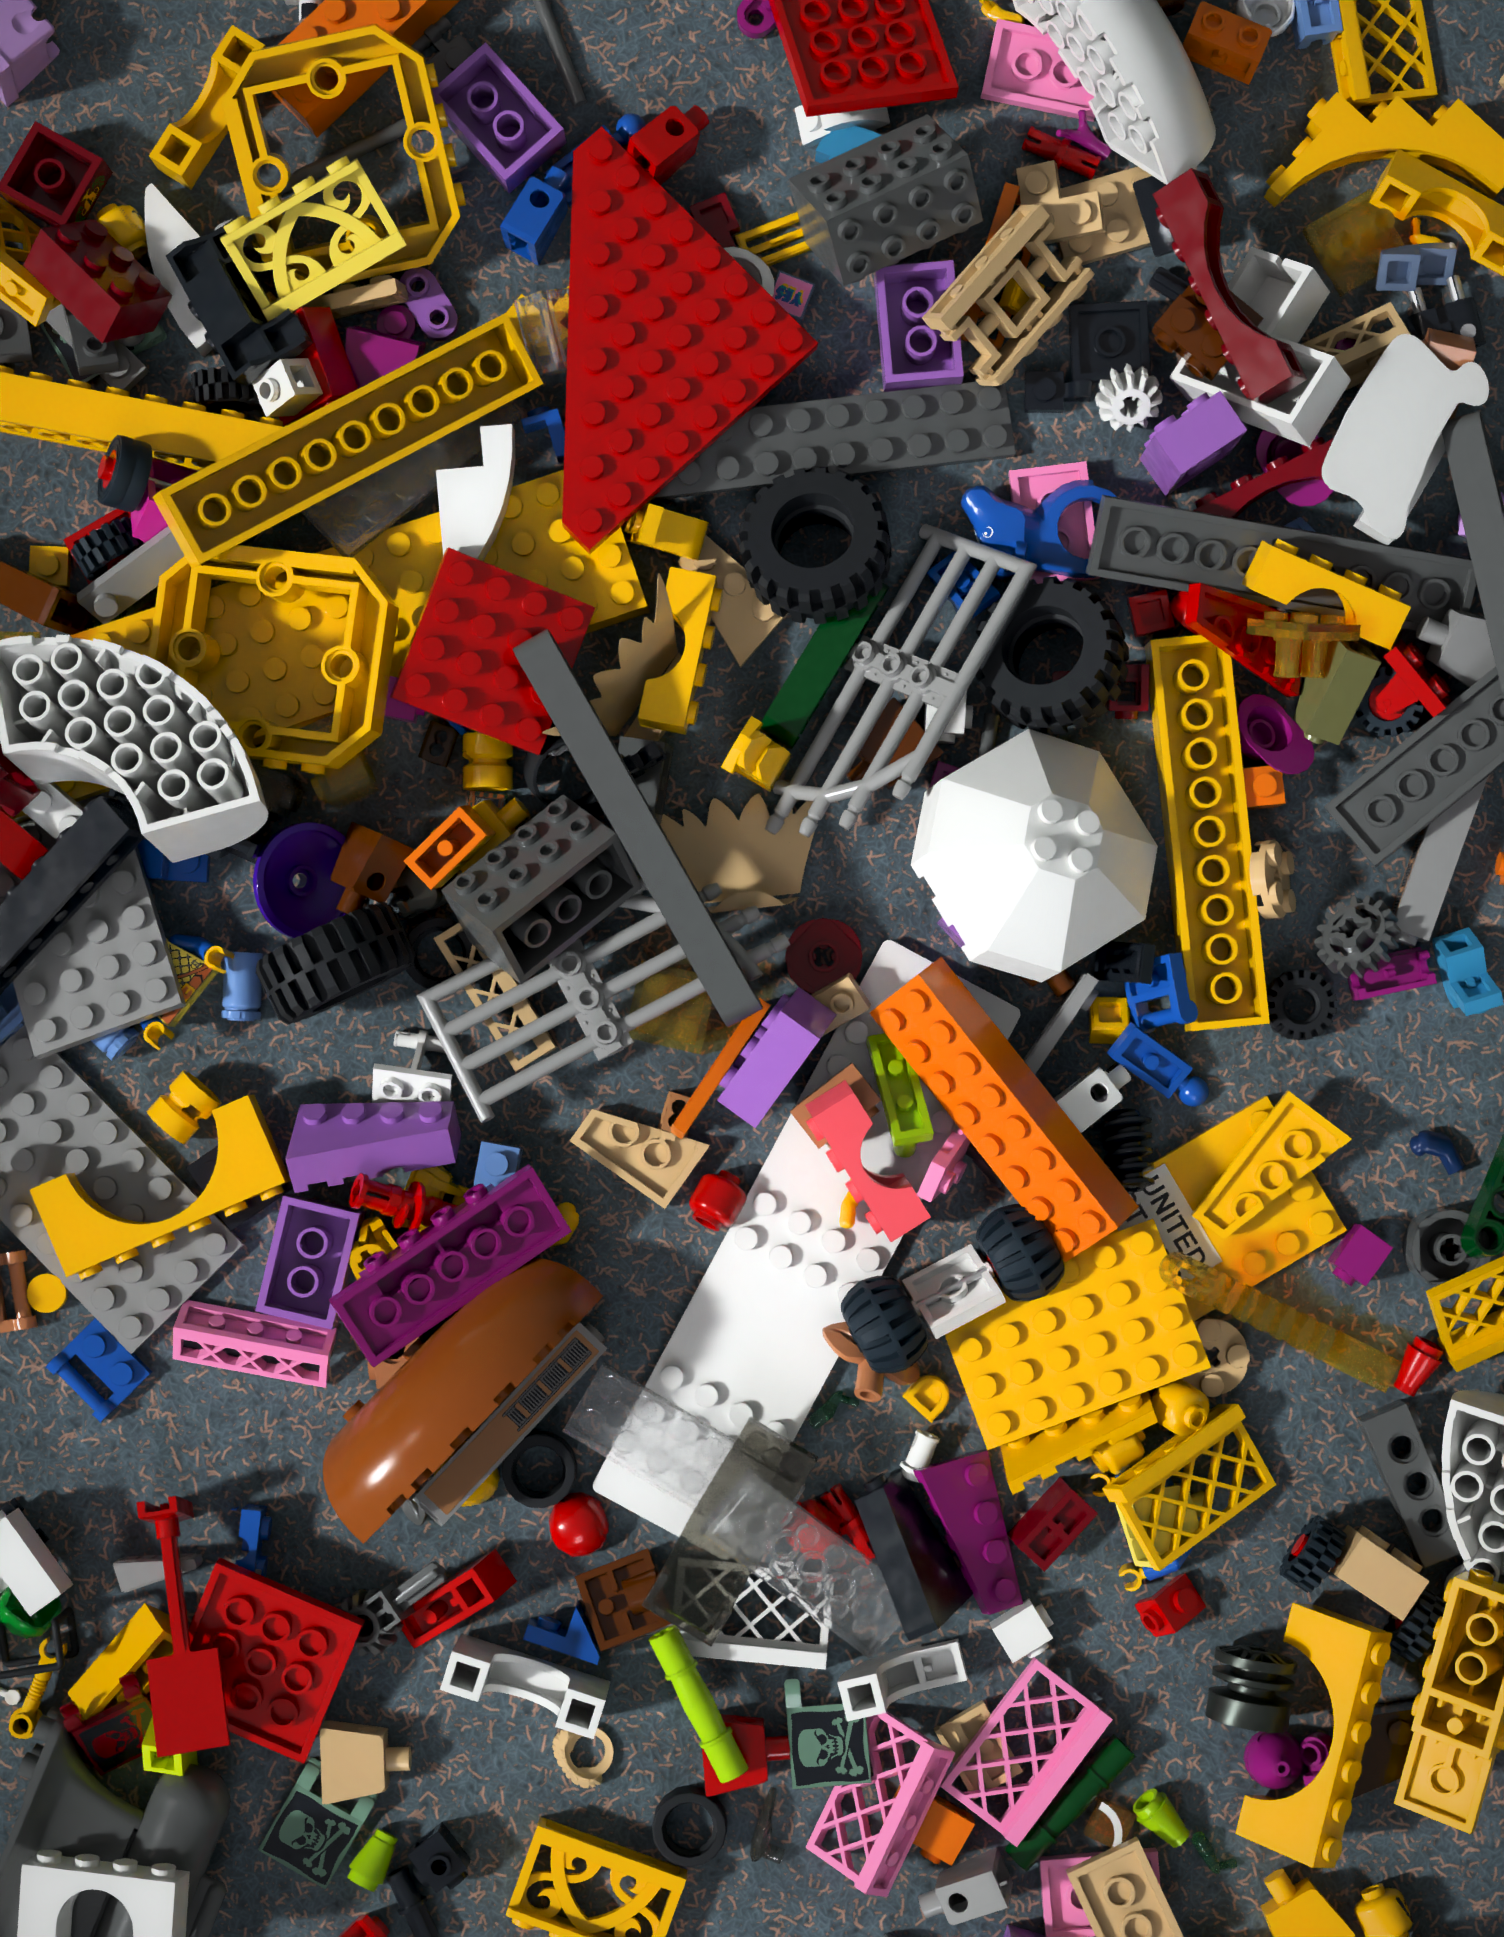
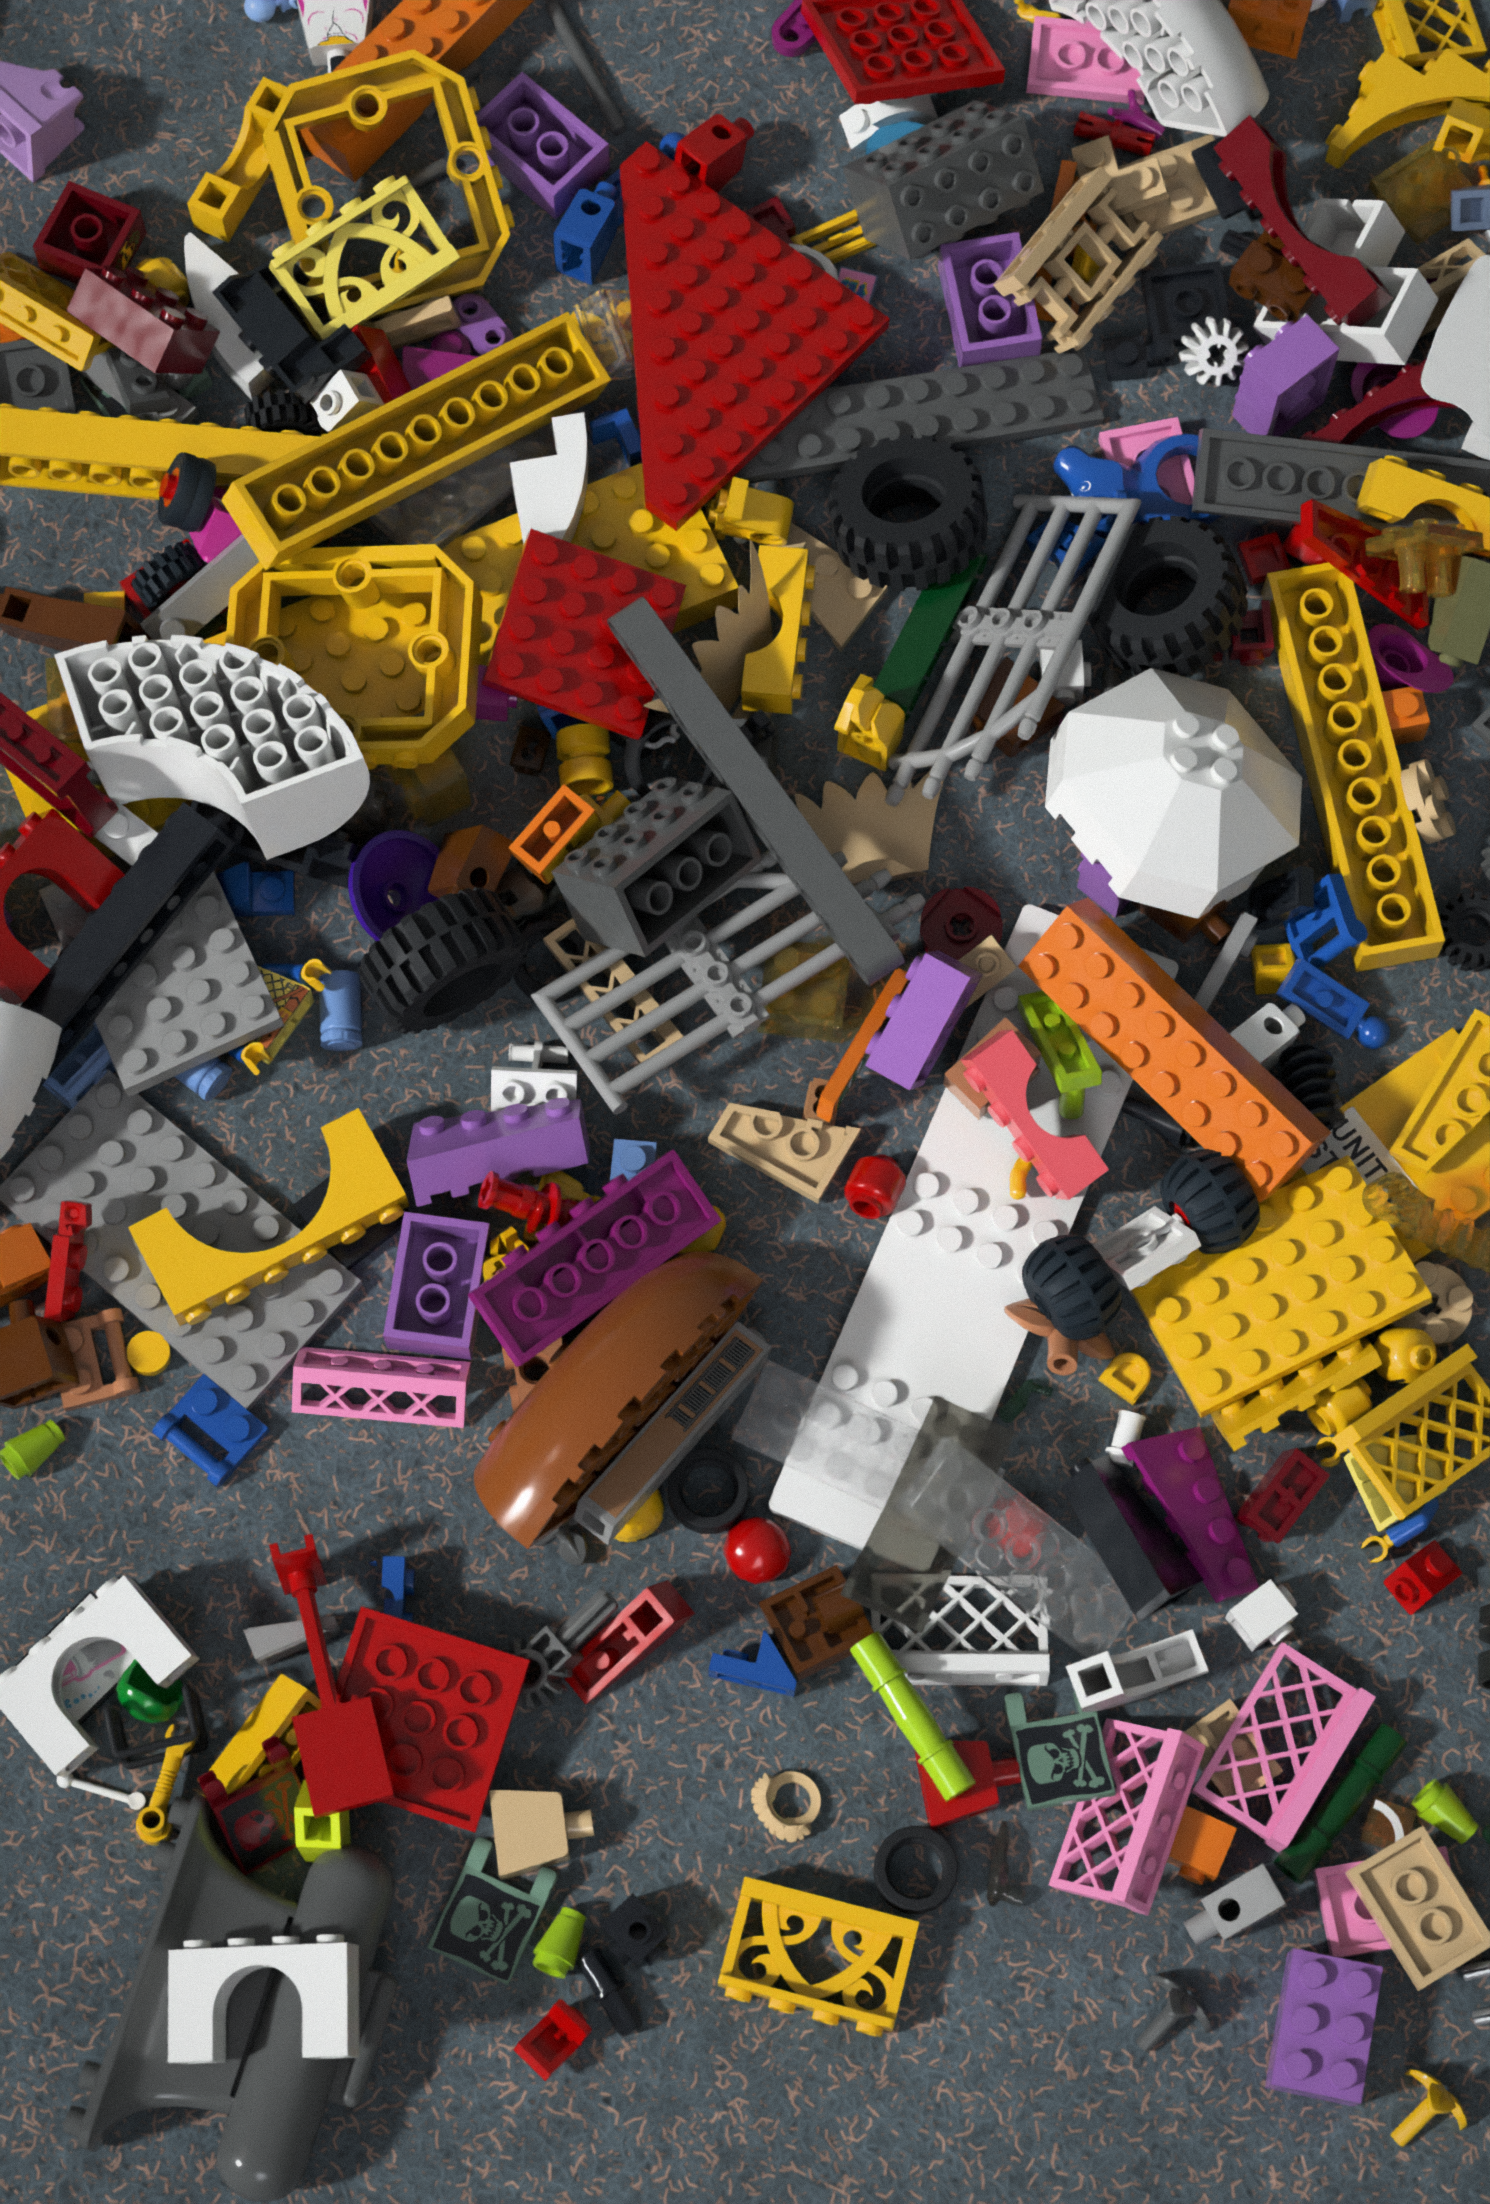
camera: 10 degrees left, 15 degrees down
(183, 1107) = (278, 1151): yellow wheel -> none
(488, 1667) = (666, 1706): white arch -> none
(849, 1518) = (1046, 1499): red pin -> none
(945, 1167) = (1117, 1119): bright pink wing -> none

